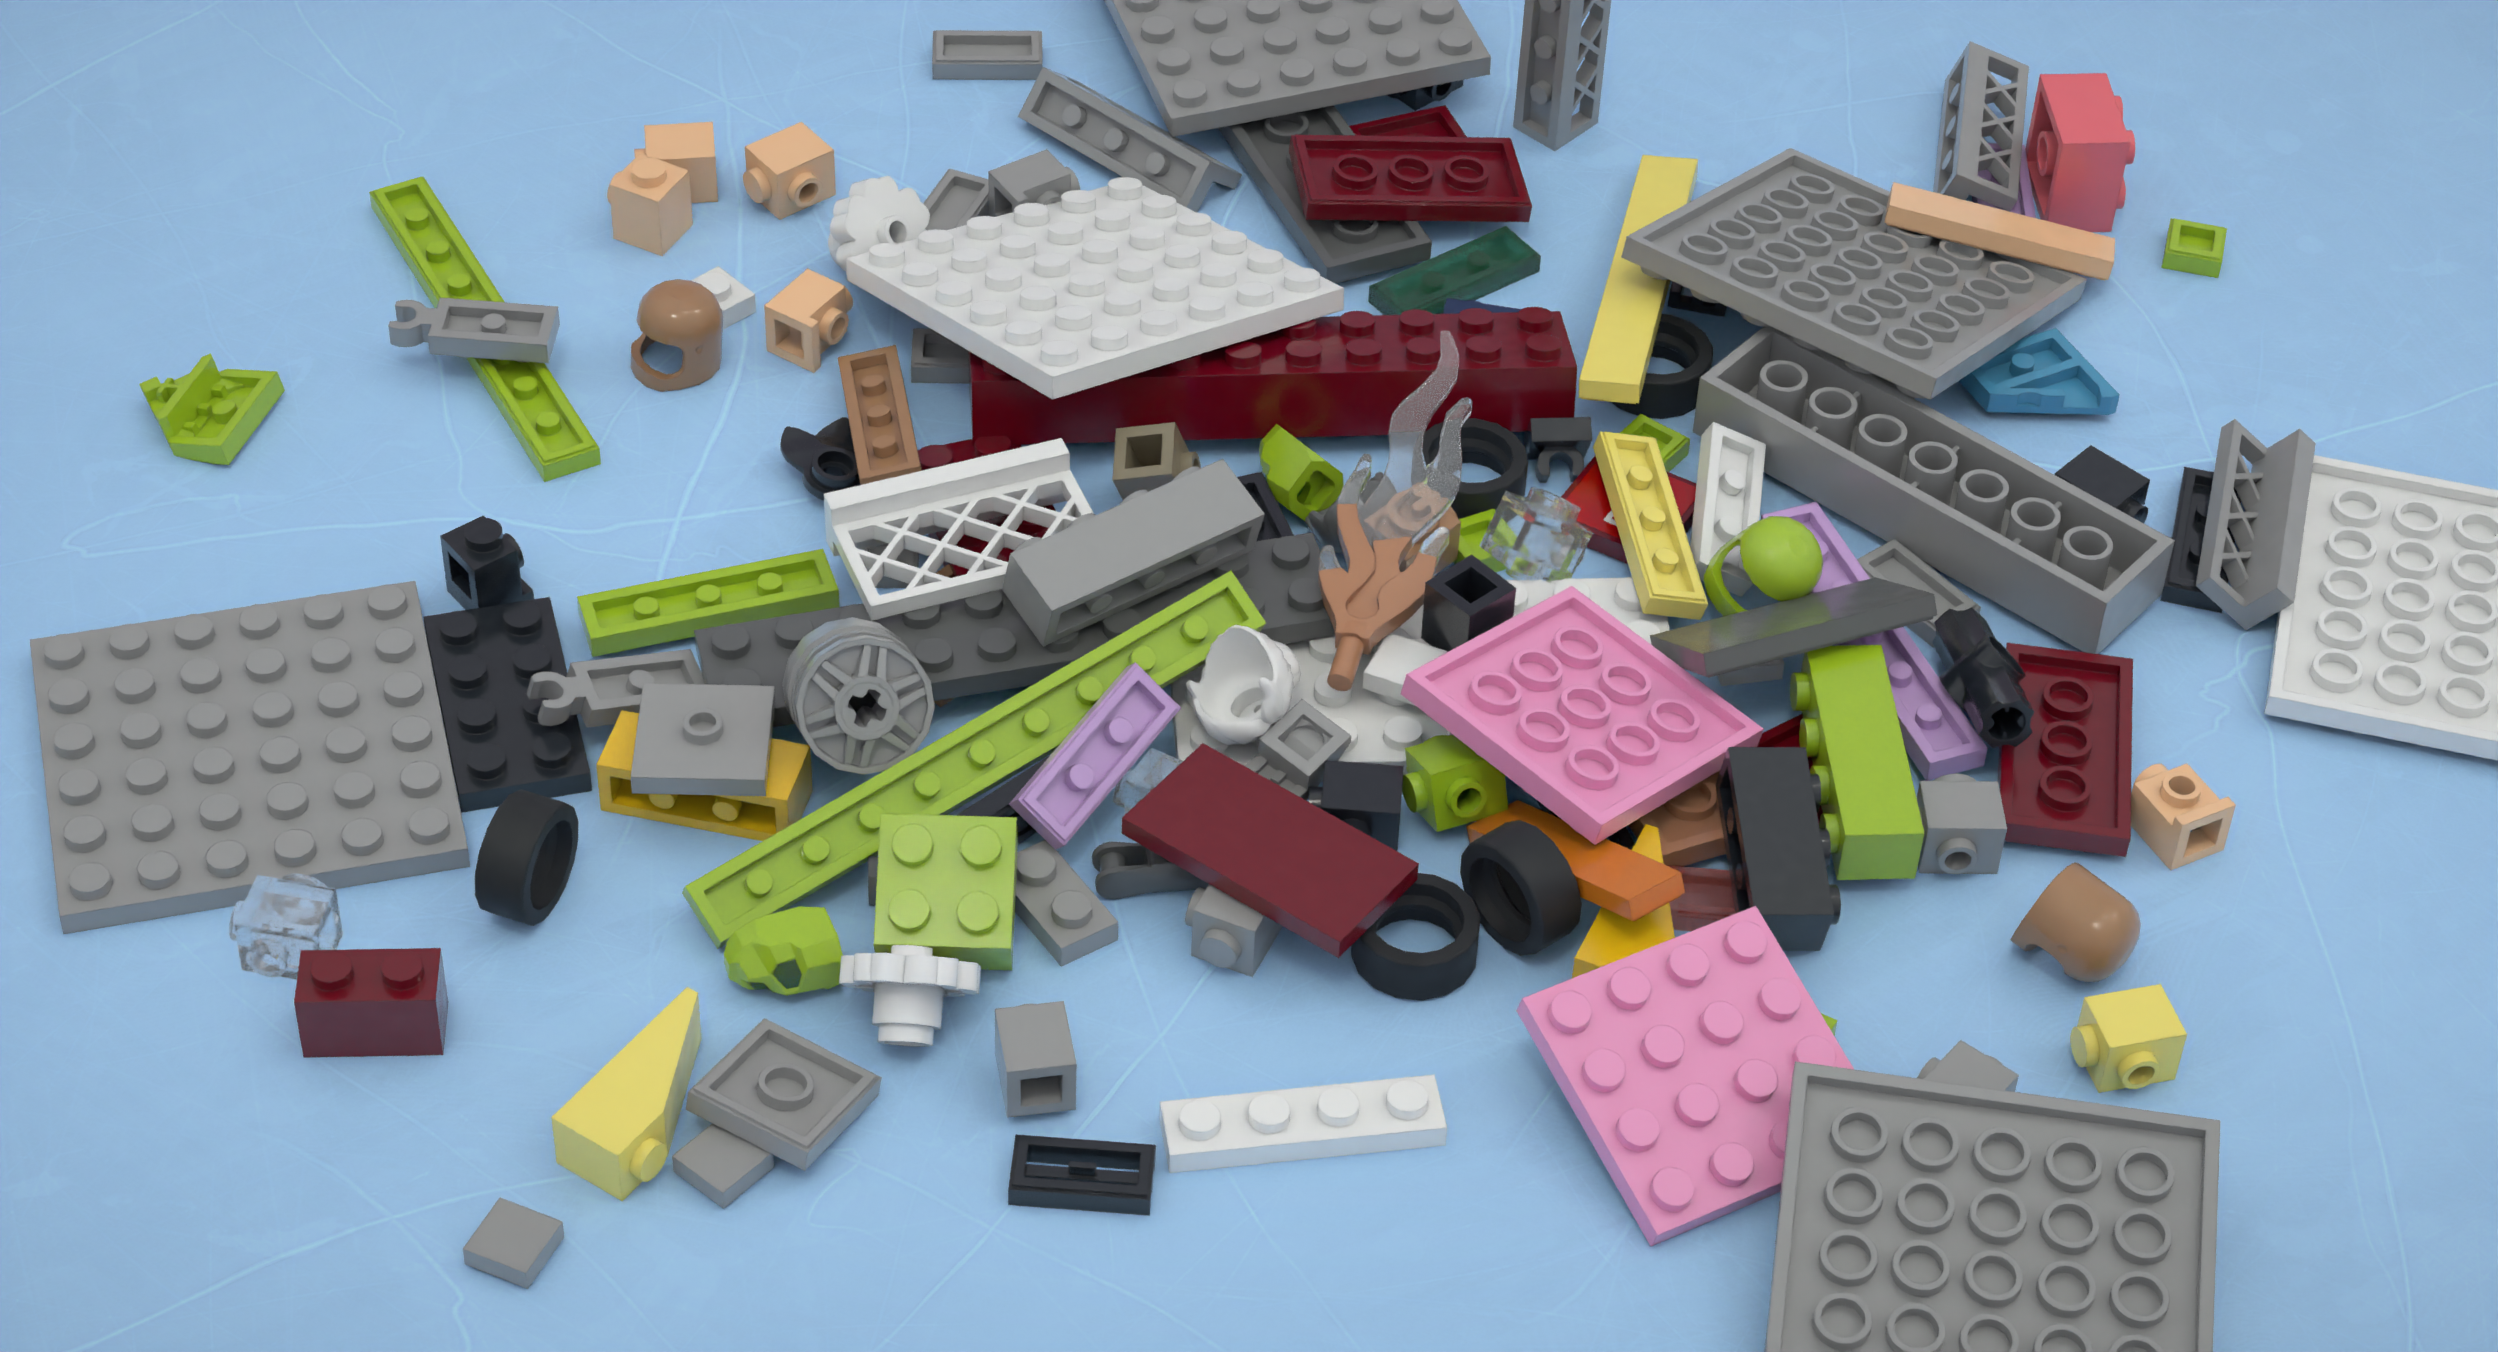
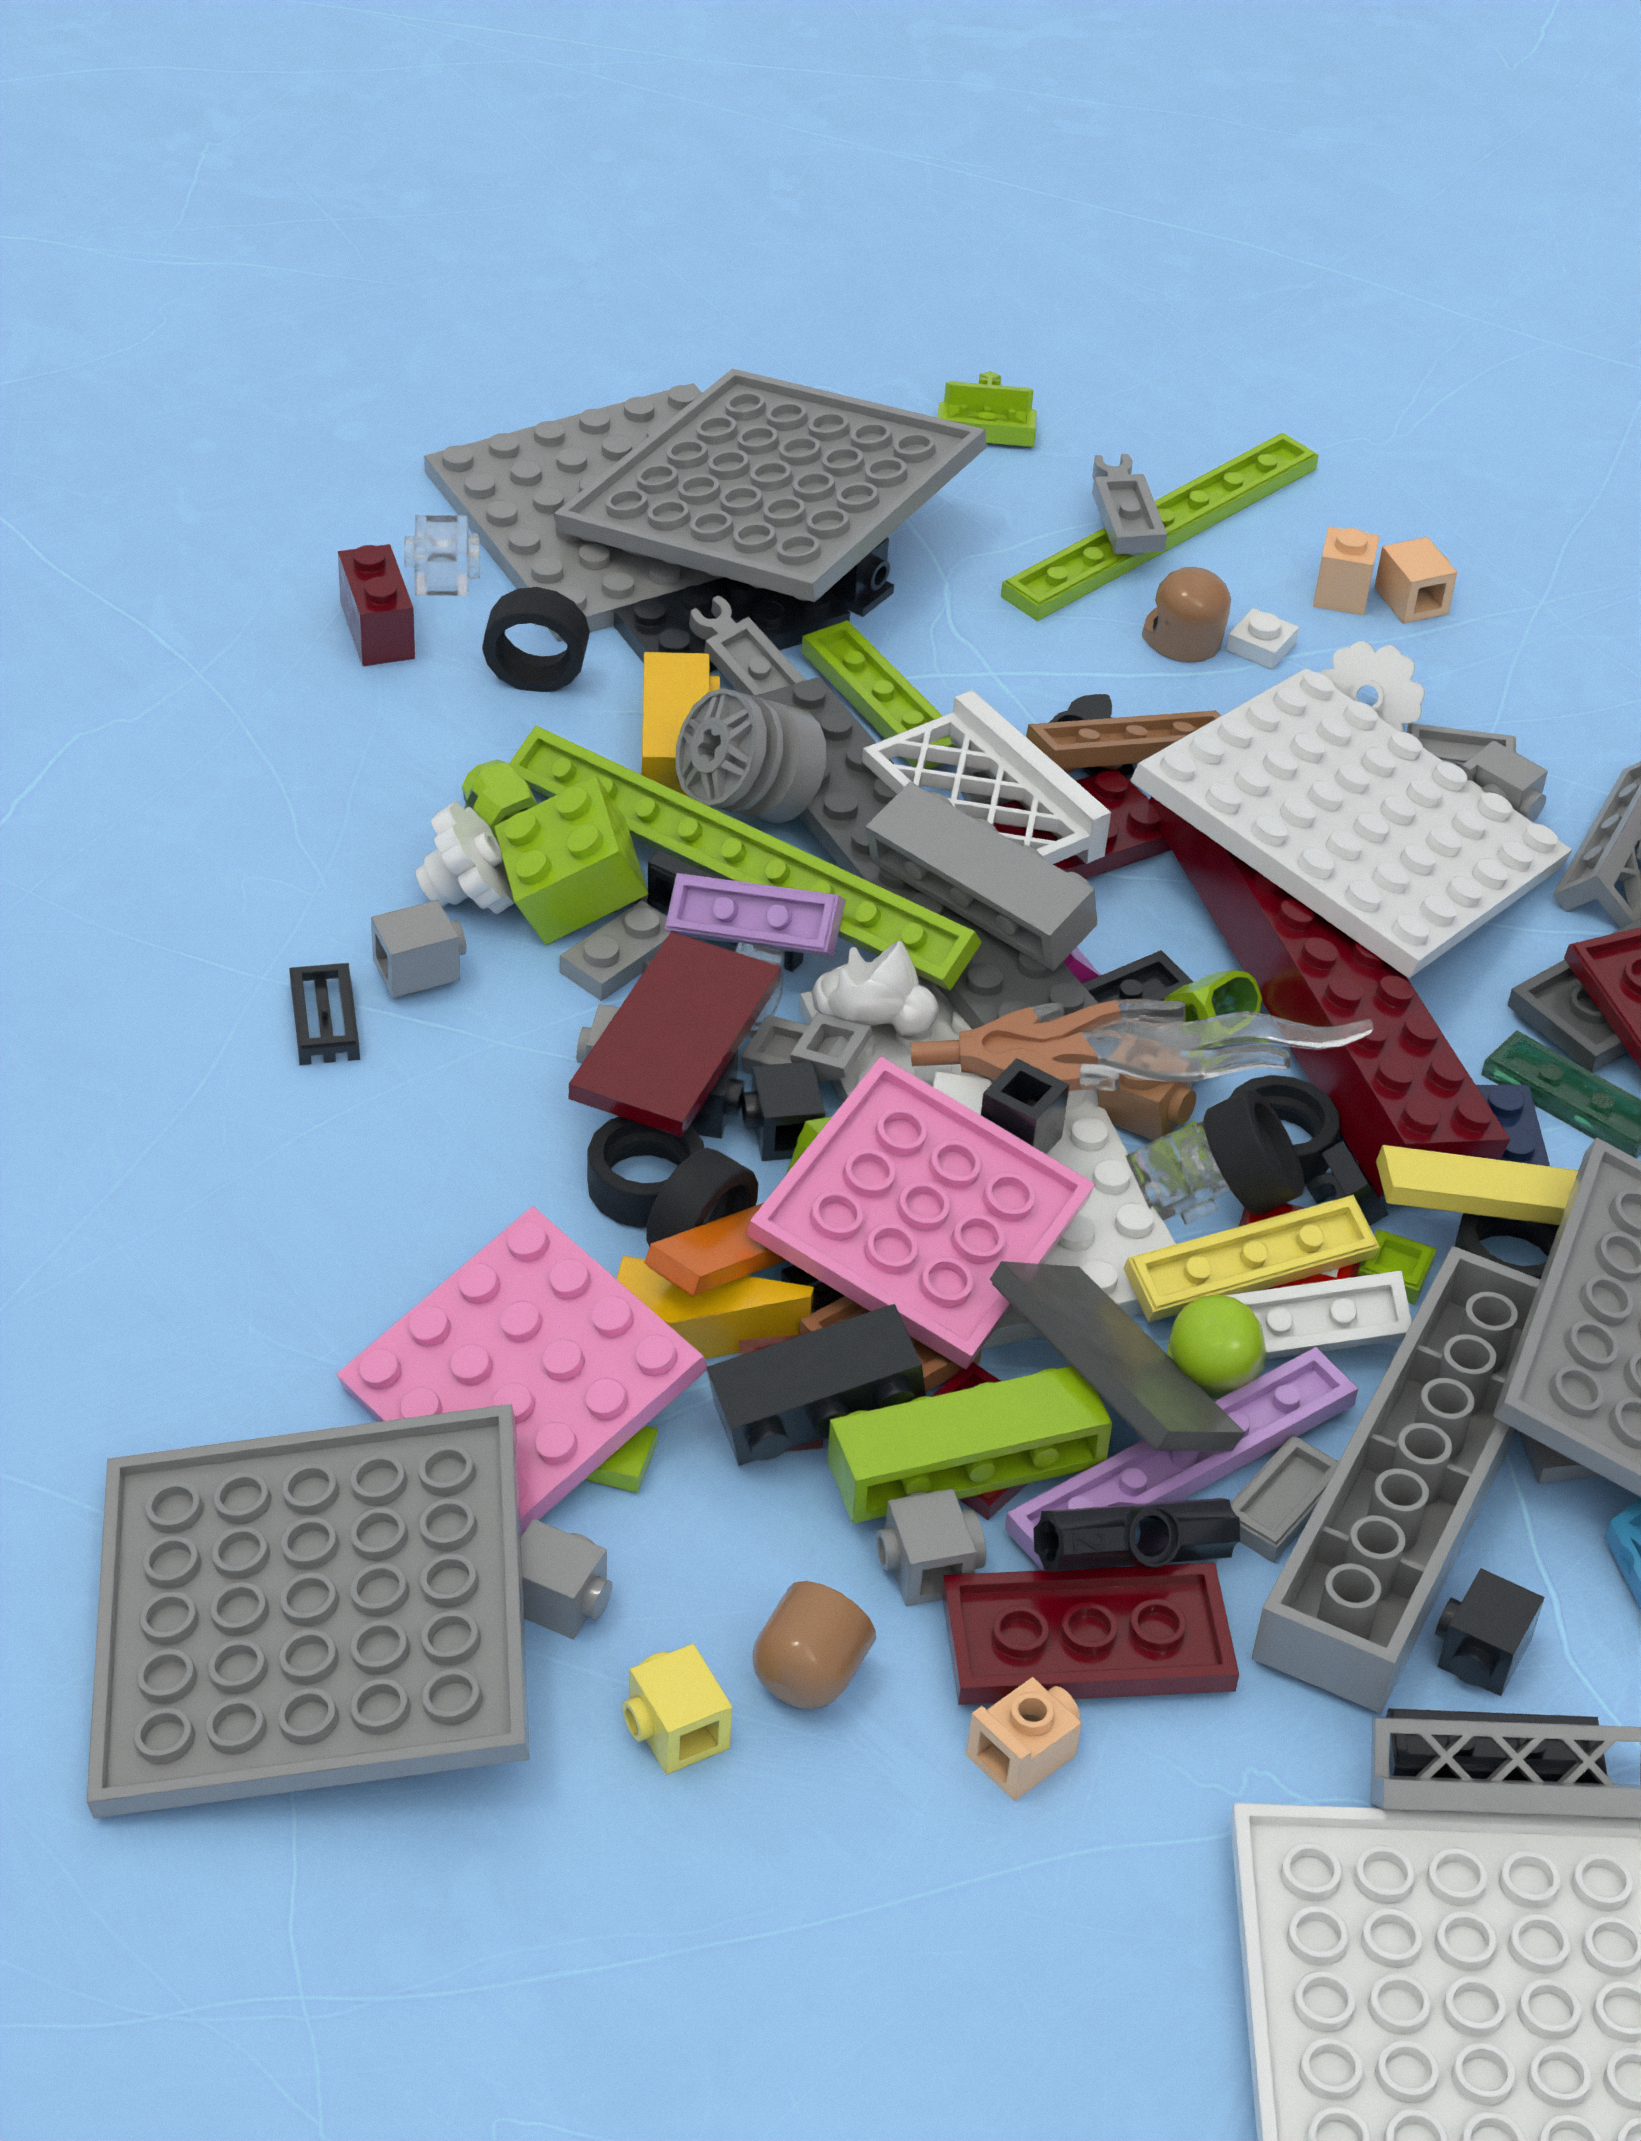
camera: 75 degrees right, 0 degrees up
(346, 585) = (771, 483): none -> light grey plate
(513, 1243) = (178, 728): light grey tile -> none
(627, 1114) = (323, 754): light yellow slope -> none
(703, 739) = (667, 685): light grey plate -> none
(721, 1164) = (284, 816): light grey tile -> none
(783, 1094) = (352, 829): light grey plate -> none
(789, 170) = (1445, 640): light nougat brick -> none
(807, 319) = (1248, 674): light nougat brick -> none
(1149, 457) = (1150, 908): dark tan brick -> none
(1302, 1123) = (416, 1137): white plate -> none
(1555, 464) = (1253, 1152): none -> black tyre

